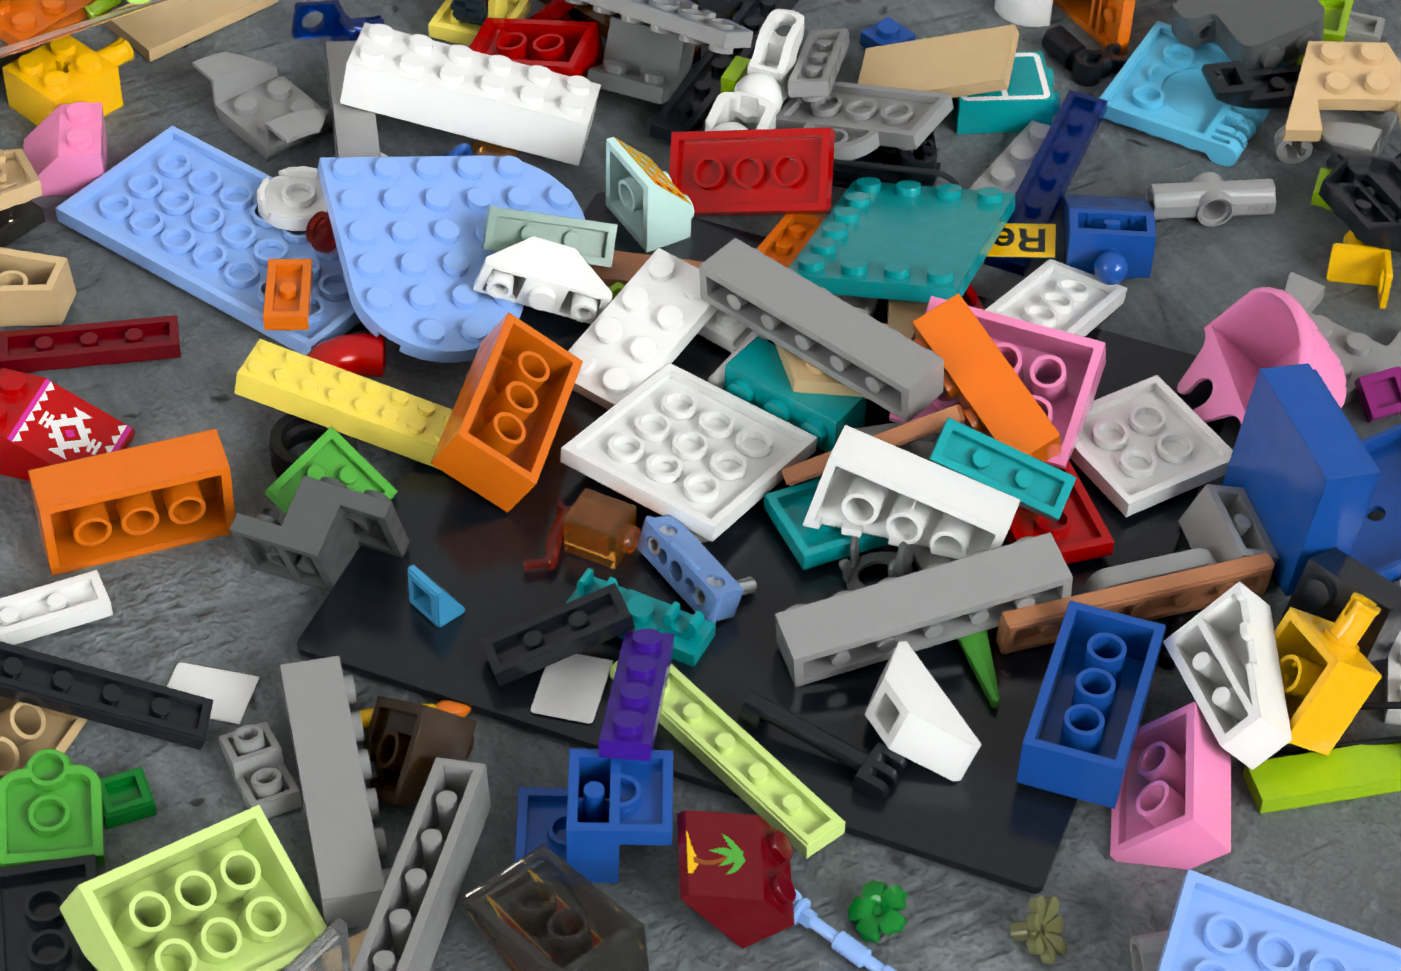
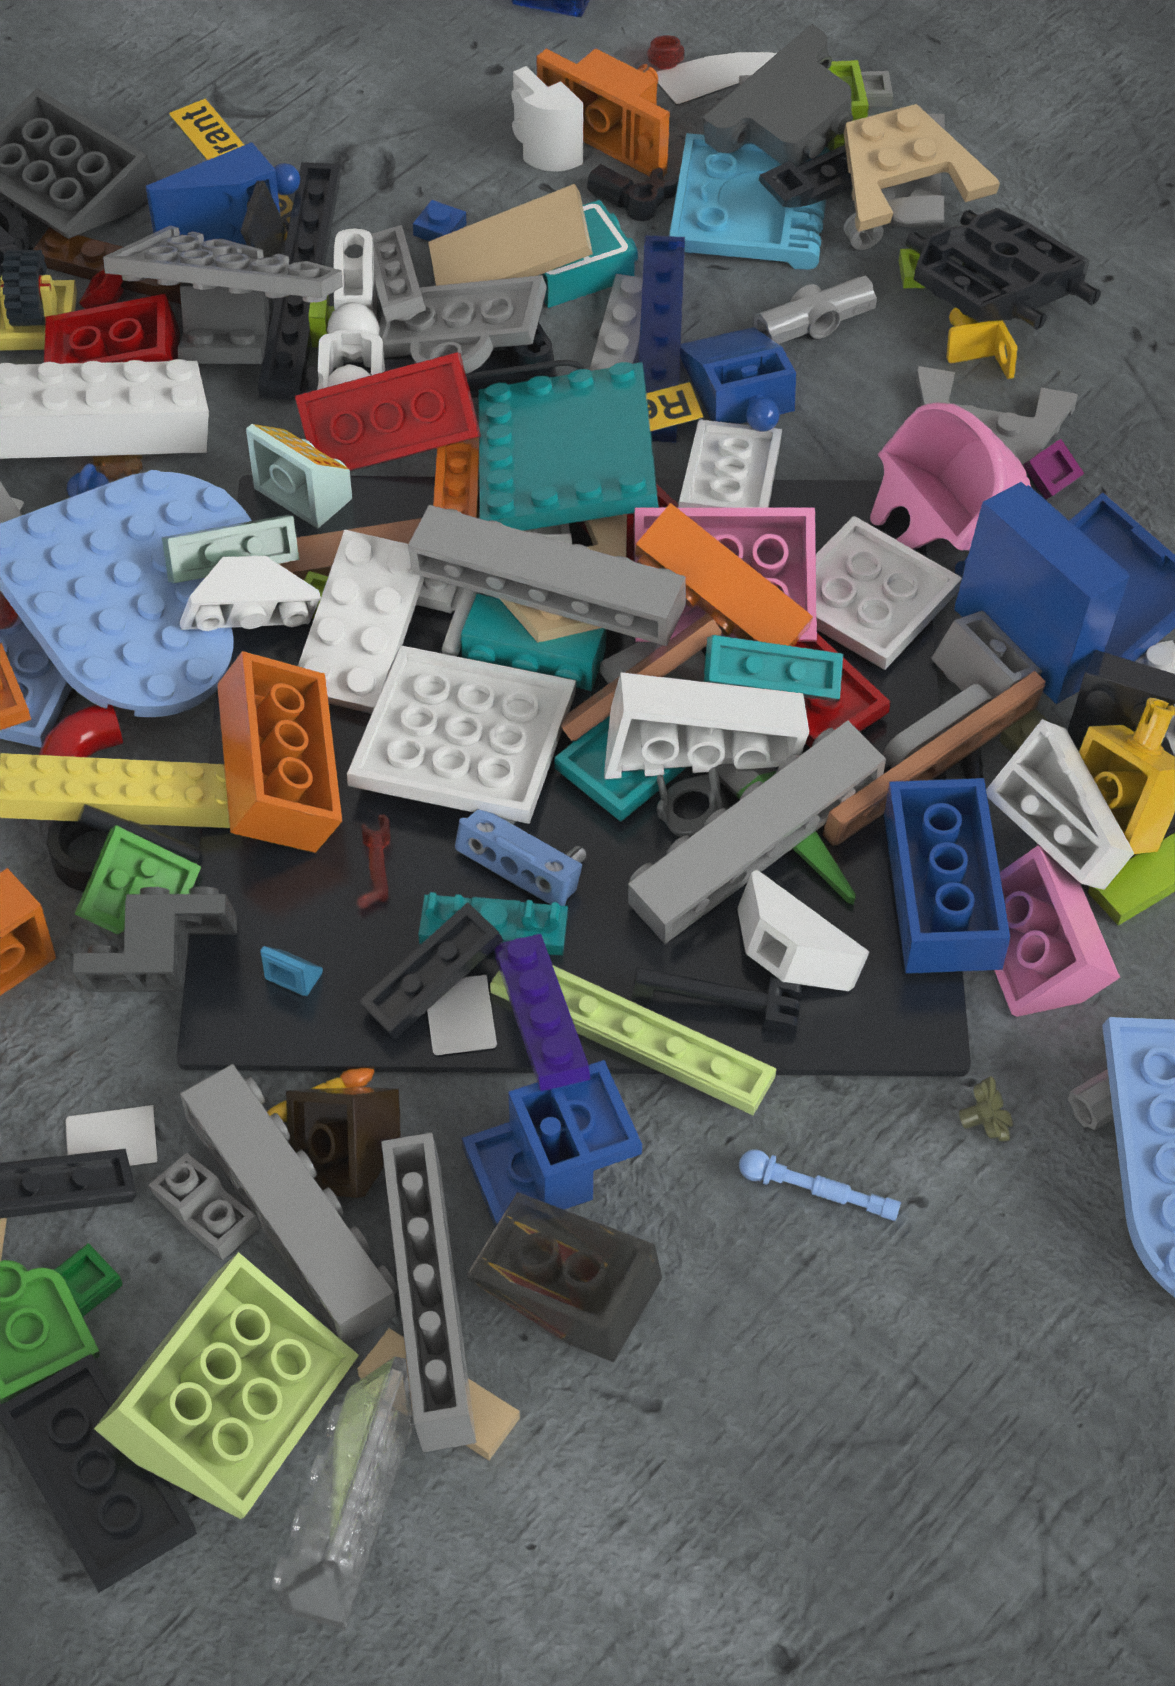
camera: 20 degrees left, 10 degrees up
(323, 421) = (105, 821): none -> black piece
(601, 528) = (418, 843): clear orange brick -> none
(736, 873) = (708, 1157): dark red slope -> none
(878, 911) = (839, 1144): green plant -> none

